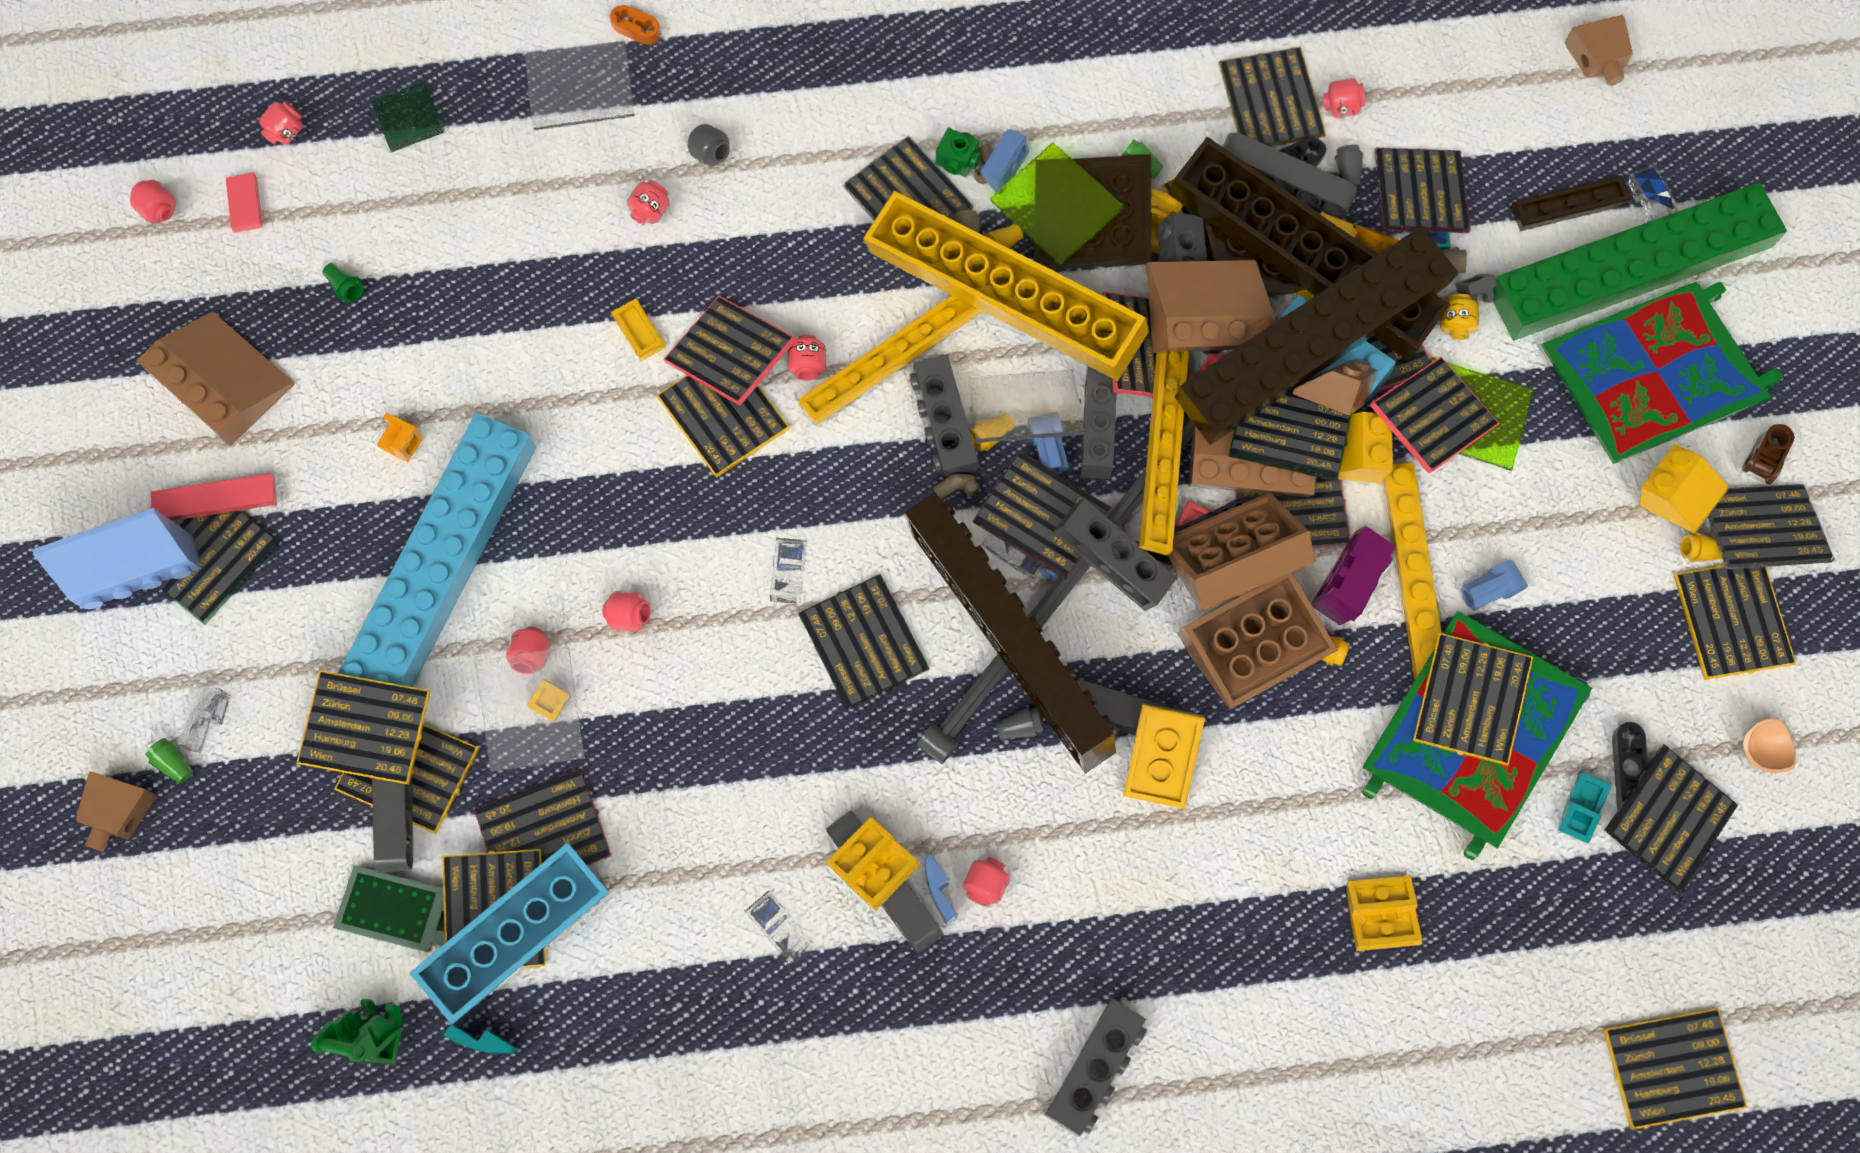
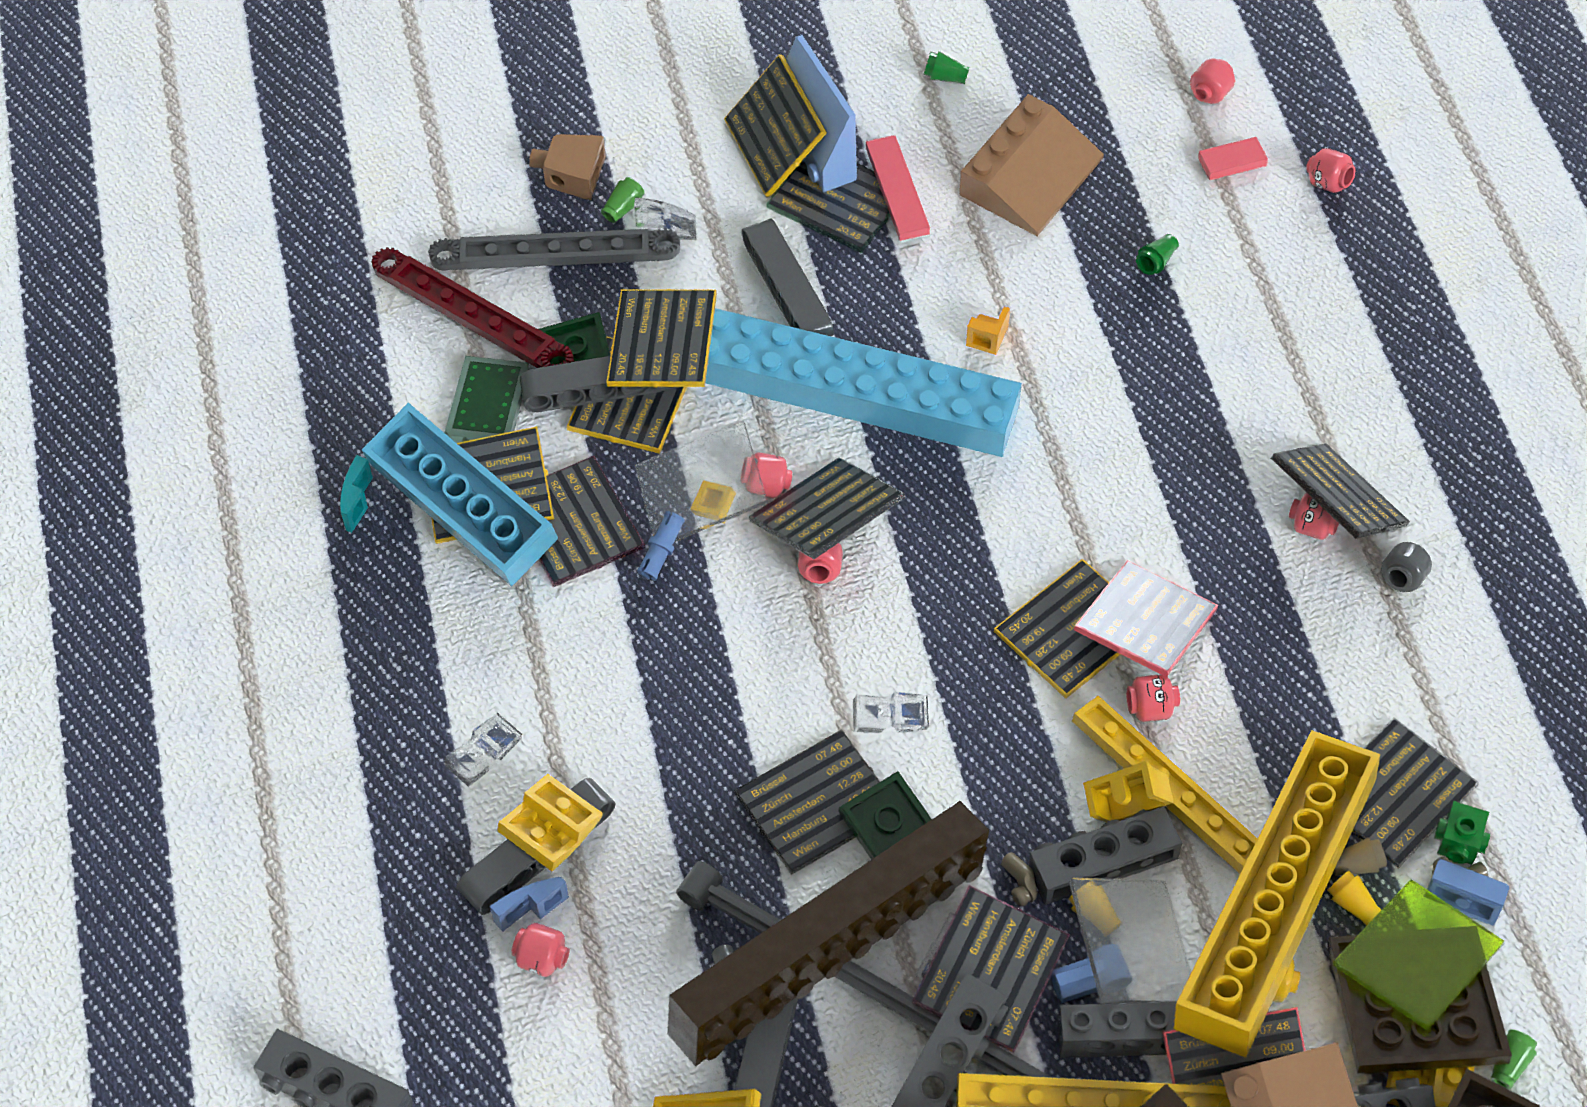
camera: 85 degrees right, 15 degrees down
(74, 436) = (944, 68): none -> green cone
(118, 599) = (775, 125): none -> piece
(217, 835) = (554, 249): none -> dark grey plate
(278, 921) = (469, 309): none -> dark red plate
(304, 611) = (785, 278): none -> dark grey beam
(342, 818) = (582, 335): none -> dark green tile
(362, 1037) = (353, 389): green piece -> none
(407, 117) = (1371, 282): clear green tile -> none
(576, 597) = (826, 507): none -> piece
(579, 85) = (1455, 436): clear piece -> none
(590, 751) = (661, 545): none -> medium blue pin
(630, 177) = (1340, 490): none -> piece
(636, 22) = (1555, 479): orange beam -> none
(638, 330) = (1158, 531): yellow tile -> none
(891, 583) = (884, 814): none -> dark green tile
(898, 386) = (1127, 792): none -> yellow window

